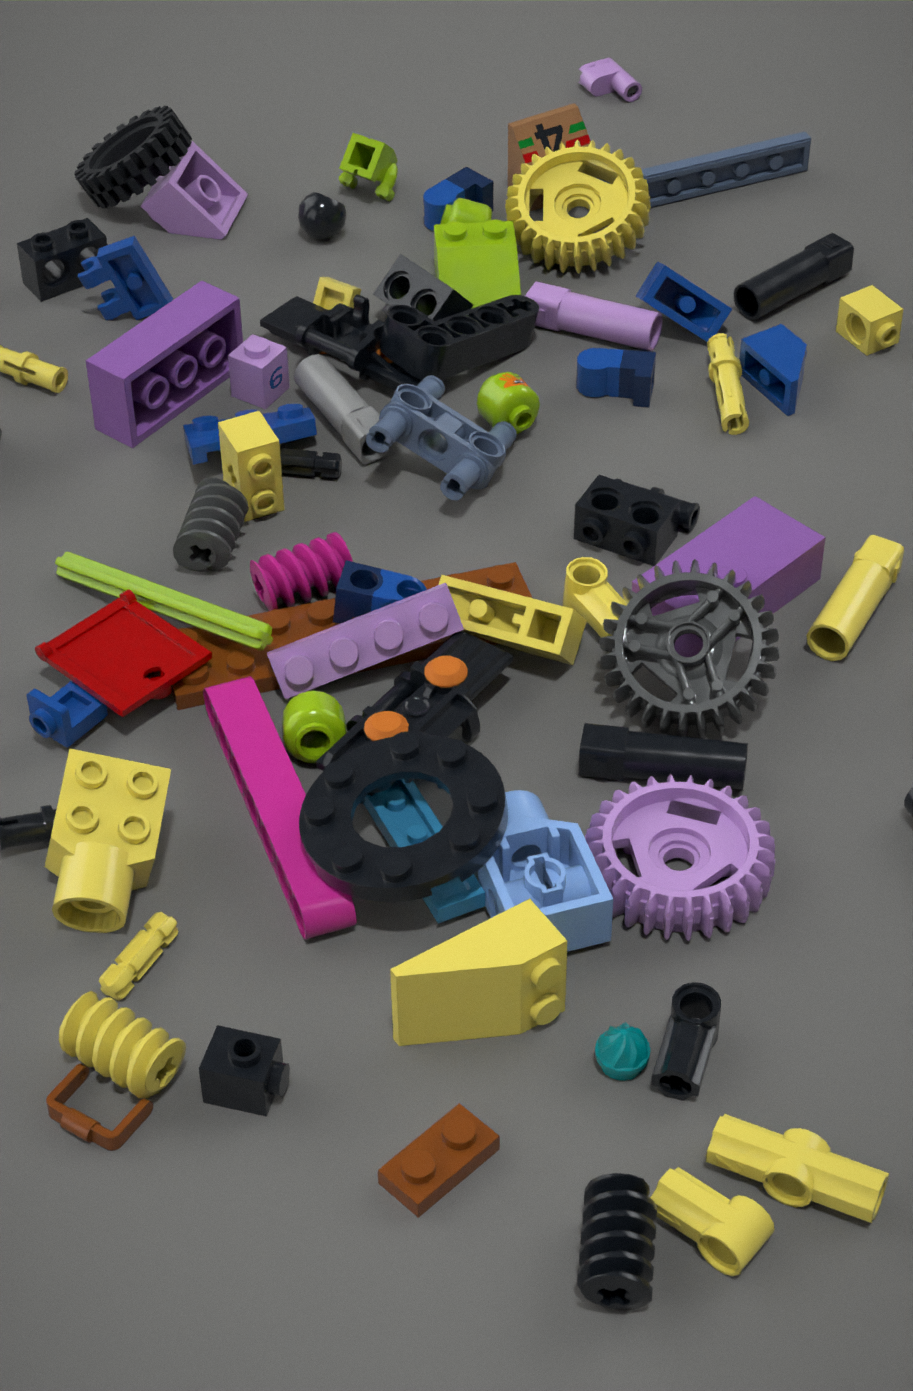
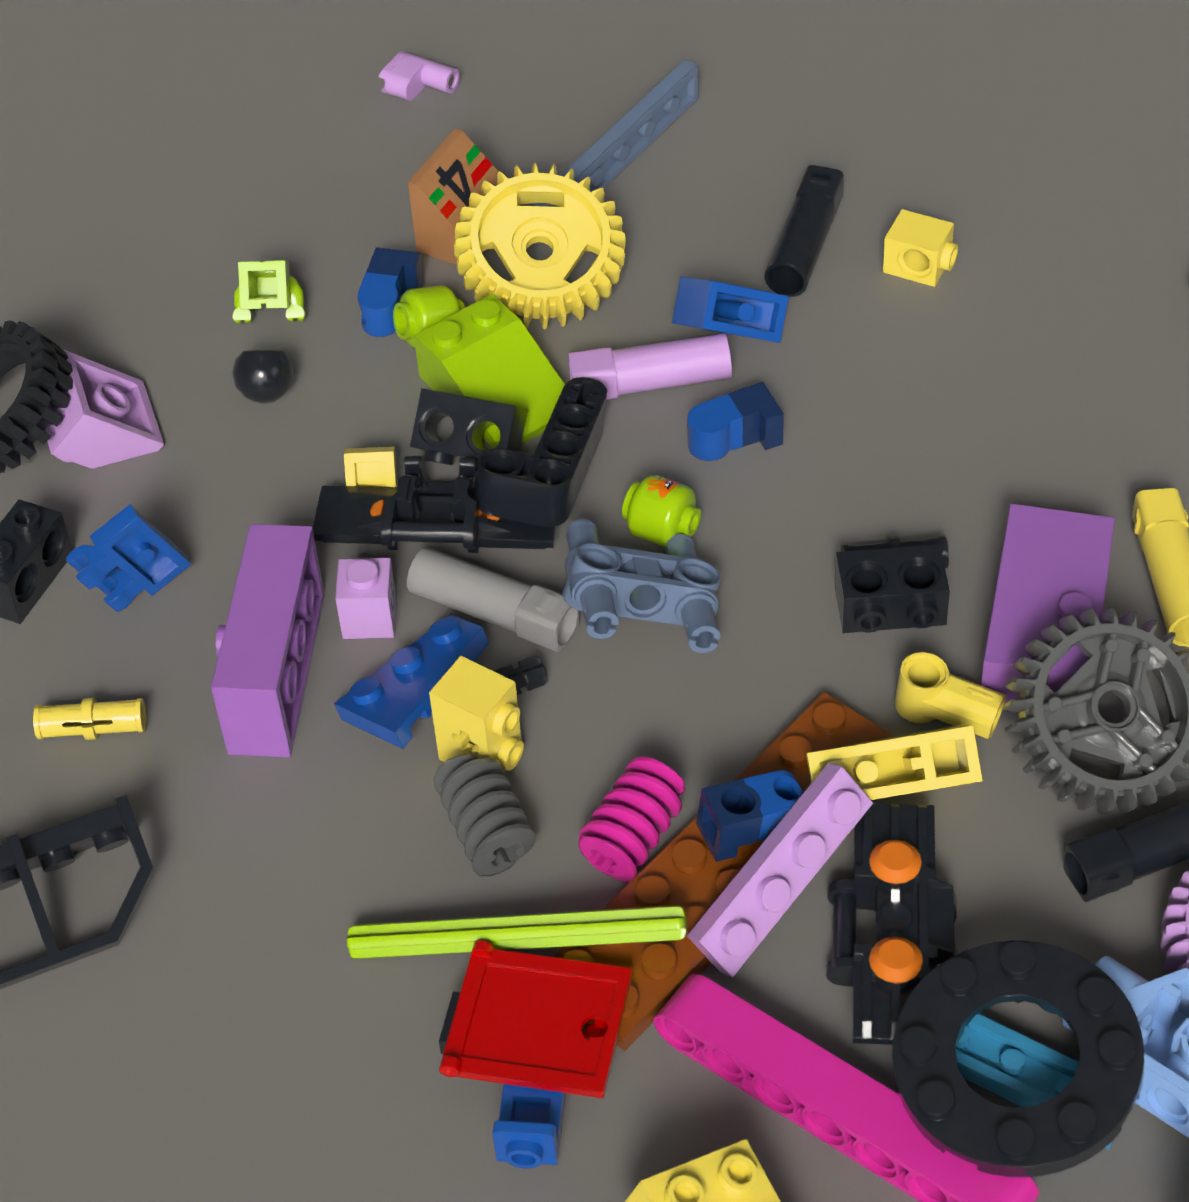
camera: 30 degrees left, 5 degrees up
(312, 725) = (803, 995): lime head -> none
(726, 373) = (832, 370): light yellow pin -> none
(775, 365) = (880, 342): blue slope -> none

